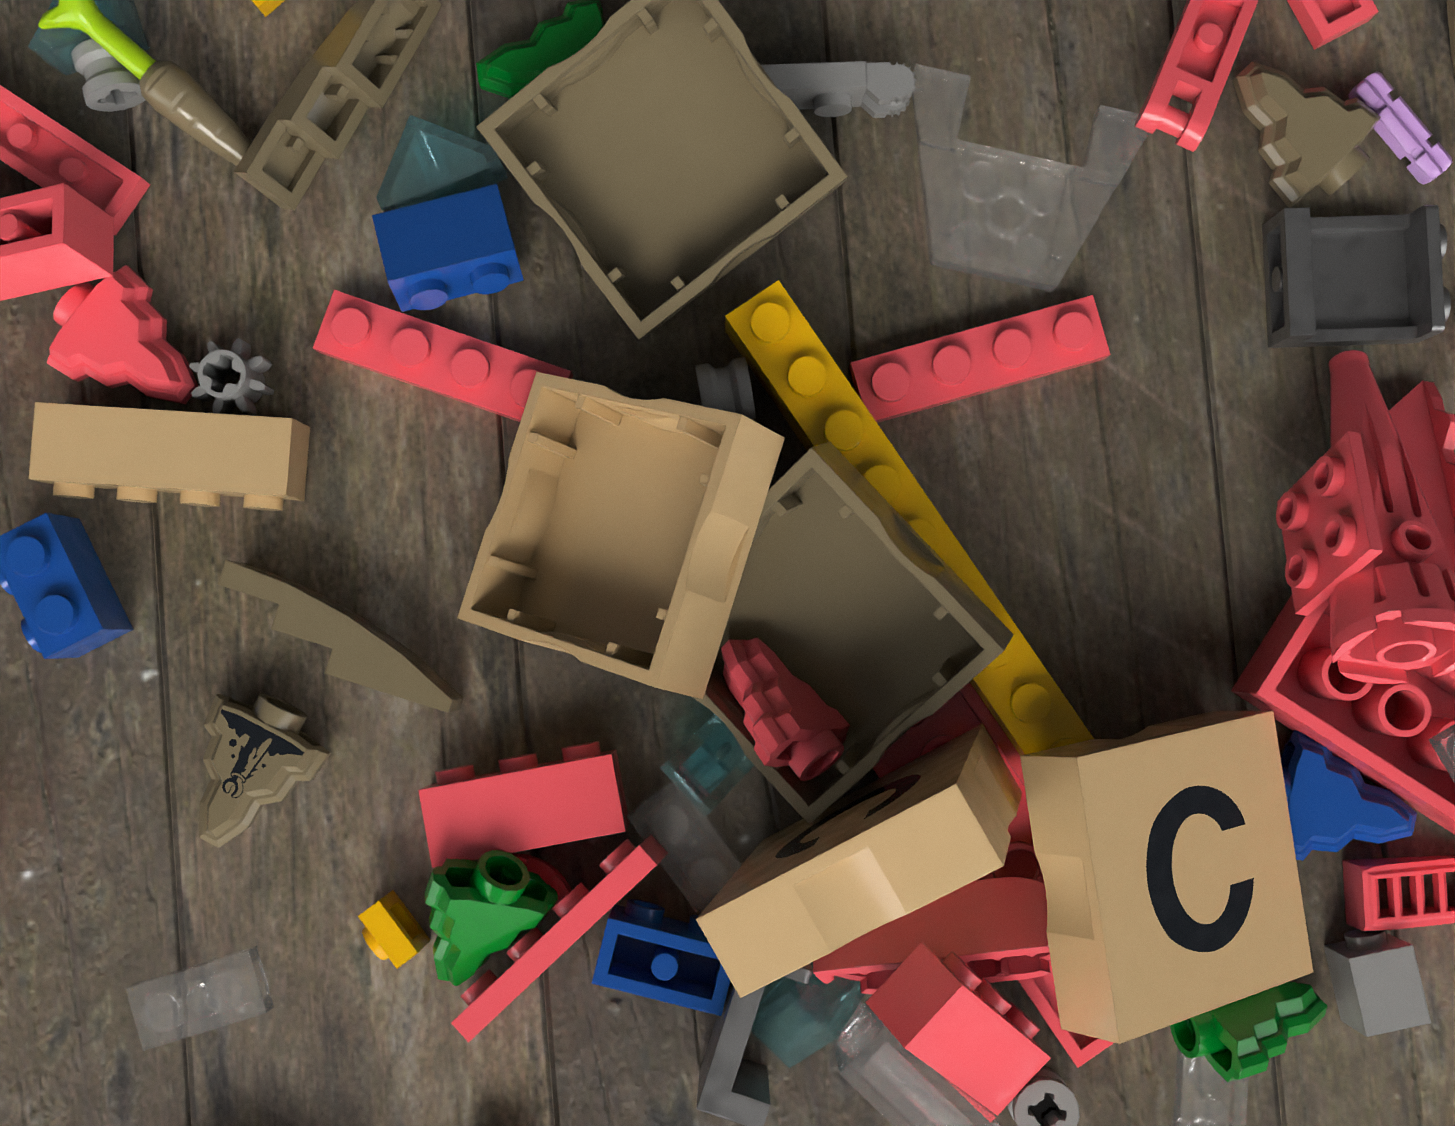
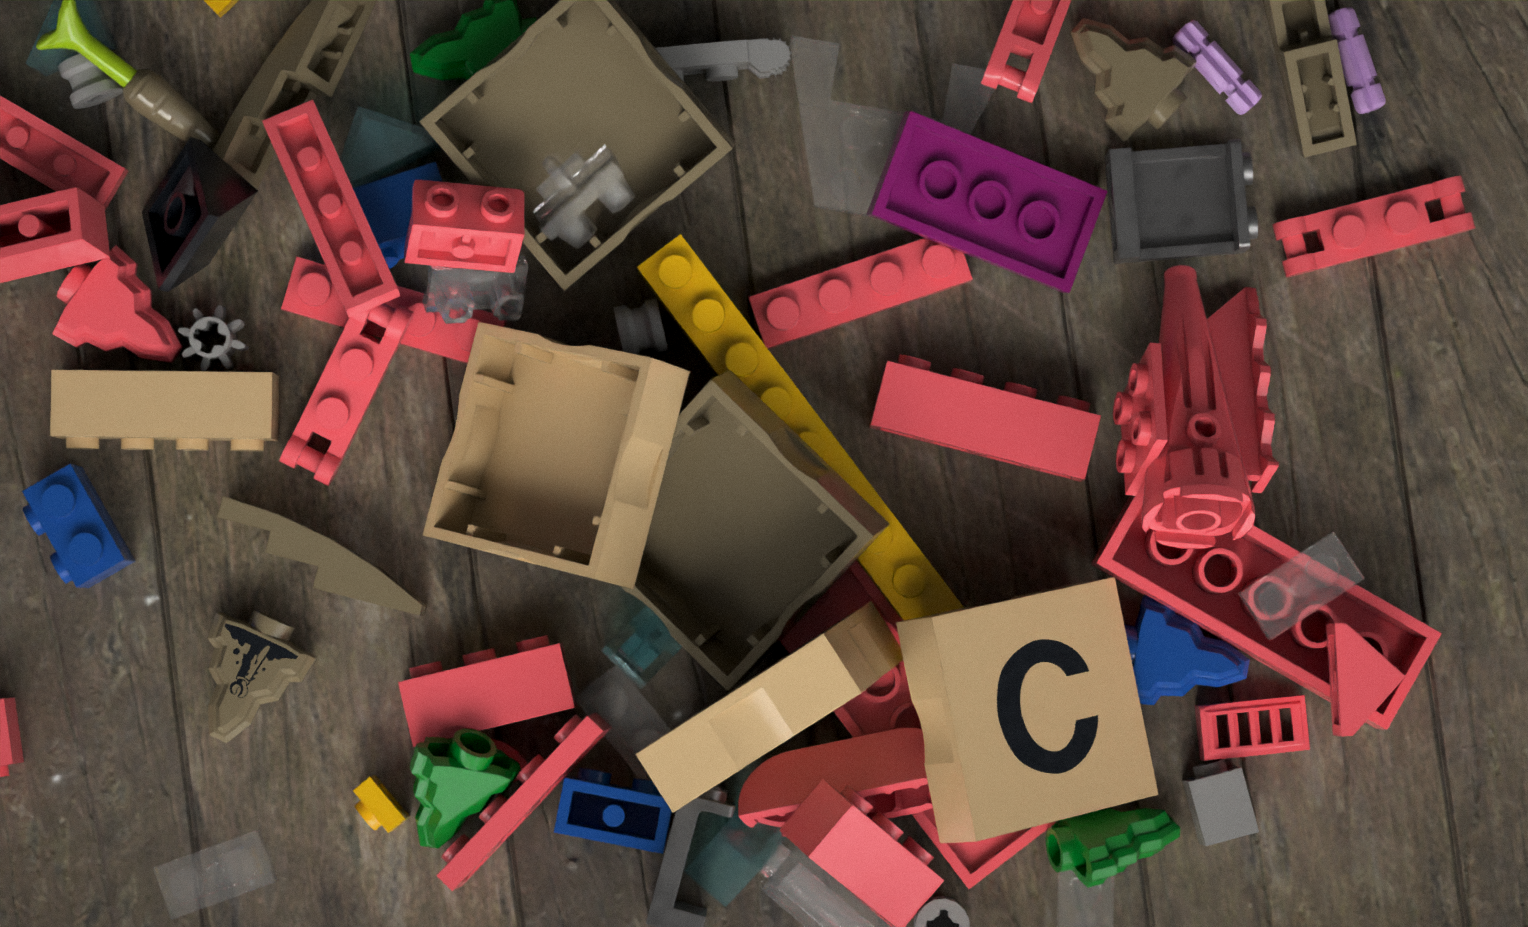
camera: 10 degrees left, 0 degrees up
(216, 232) = (193, 213): none -> black slope
(367, 228) = (331, 208): none -> coral plate
(382, 440) = (346, 390): none -> coral plate
(523, 254) = (465, 226): none -> coral bracket
(536, 329) = (460, 291): none -> clear hips
(684, 211) = (574, 188): none -> clear hips
(782, 711) = (702, 599): coral rock -> none
(1122, 517) = (985, 420): none -> coral brick
(1135, 263) = (986, 202): none -> magenta plate

